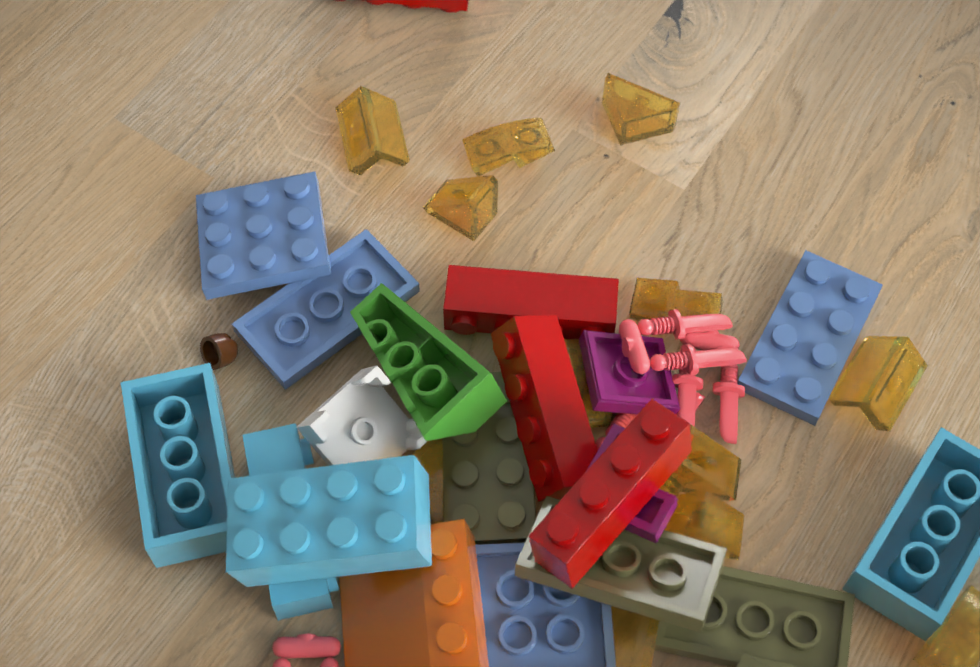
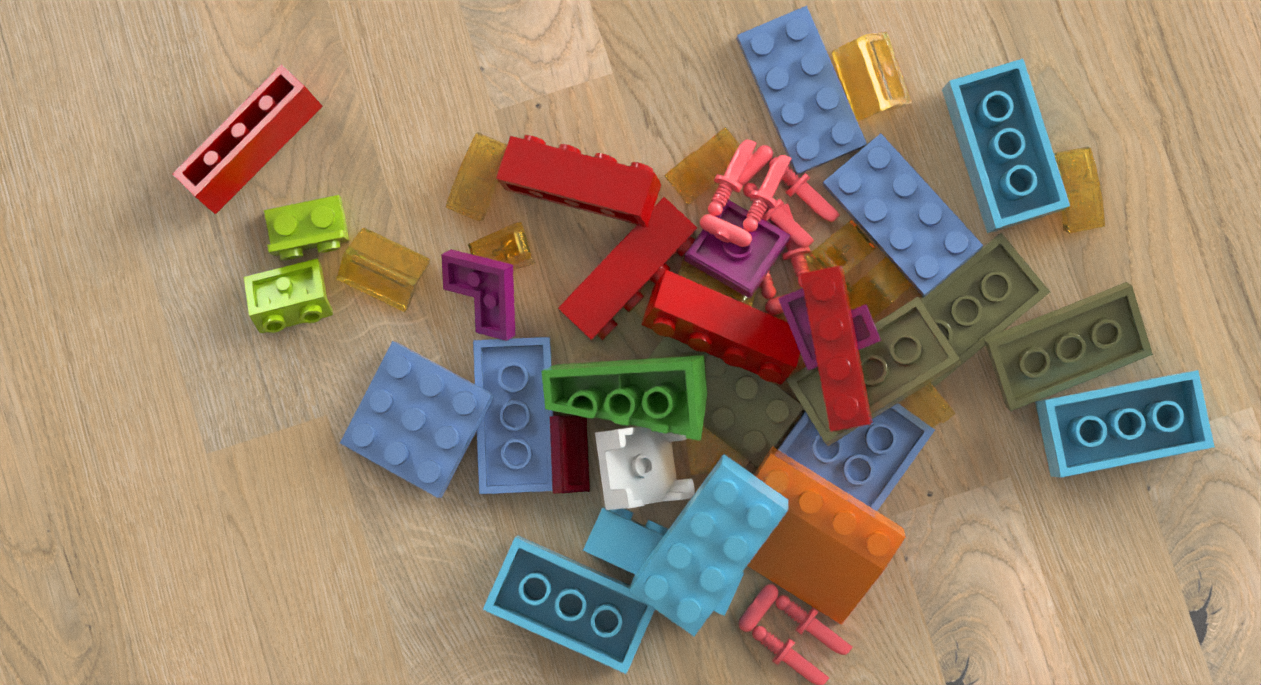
camera: 50 degrees left, 25 degrees up
(218, 350) = (490, 516): reddish brown hinge -> none
(290, 83) = (287, 296): none -> lime bracket
(325, 372) = (569, 454): none -> dark red tile
(360, 61) = (305, 227): none -> lime bracket
(423, 203) = (489, 284): none -> magenta plate
(573, 209) = (579, 180): none -> red brick
(637, 111) = (524, 56): clear yellow slope -> none
(786, 497) = (902, 215): none -> medium blue plate

